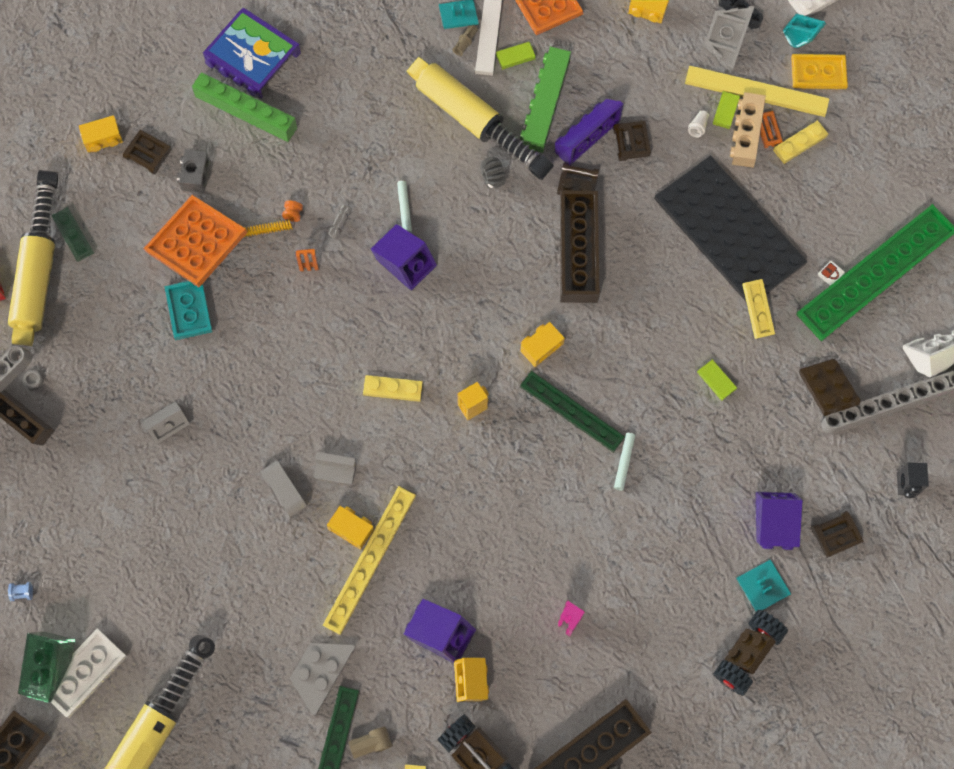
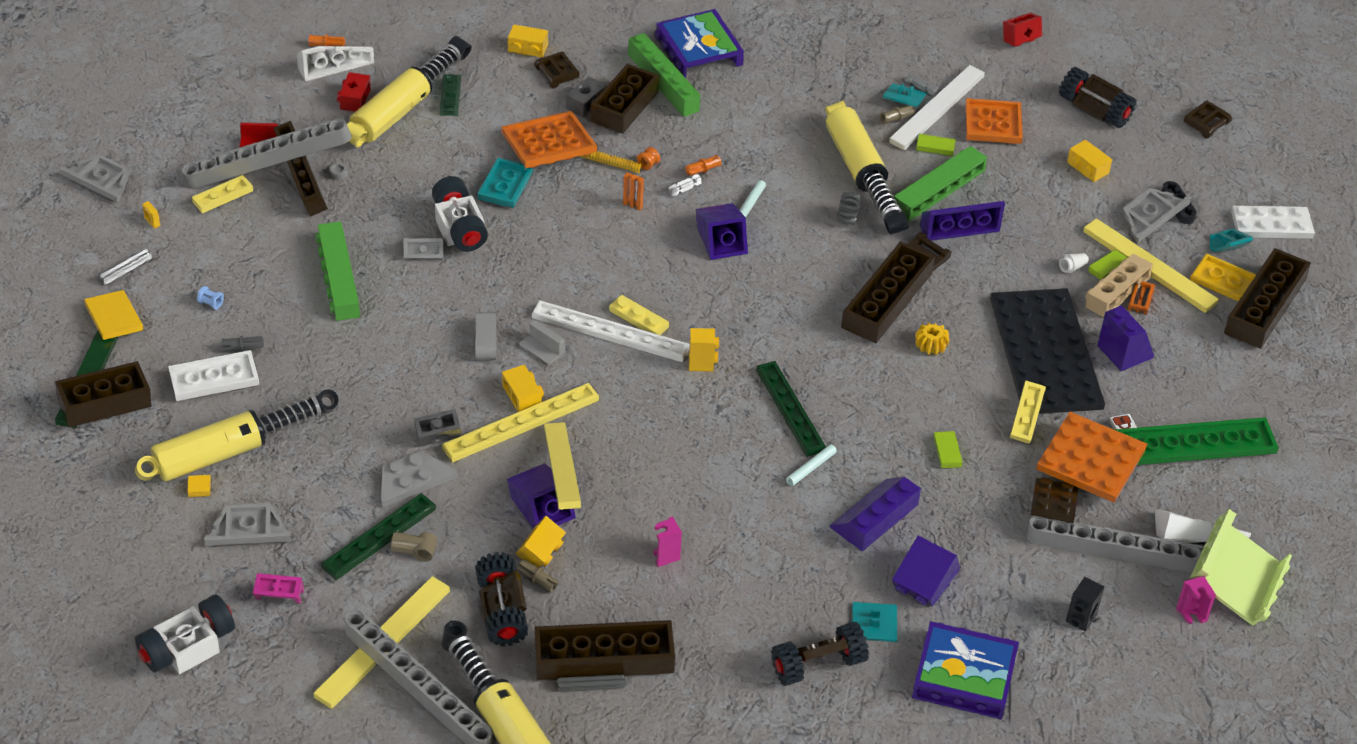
camera: 30 degrees right, 25 degrees down
(44, 664) = (189, 347): clear green slope -> none
(83, 623) = (242, 343): none -> dark grey axle
(114, 497) = (338, 271): none -> bright green brick
(178, 376) = (458, 215): none -> brick
(230, 155) = (624, 98): none -> dark brown brick
(311, 615) = (437, 427): none -> flat silver brick
(342, 191) = (703, 165): none -> orange axle
(379, 418) = (610, 331): none -> white tile
(446, 601) = (562, 466): none -> light yellow tile
(486, 710) = (537, 575): none -> dark tan axle
(541, 344) = (799, 345): yellow brick -> none
(637, 138) = (1004, 249): dark brown plate -> none
(639, 279) = (932, 338): none -> yellow gear
(702, 478) = (877, 512): none -> dark purple slope
(788, 191) = (1124, 339): none -> dark purple slope
(800, 142) = (1167, 319): light yellow plate -> none
(832, 326) = (1091, 456): none -> orange plate
(840, 540) = (978, 620): dark brown plate -> none
(861, 592) = (965, 670): none -> panel
(868, 78) = (1267, 298): none -> dark brown brick

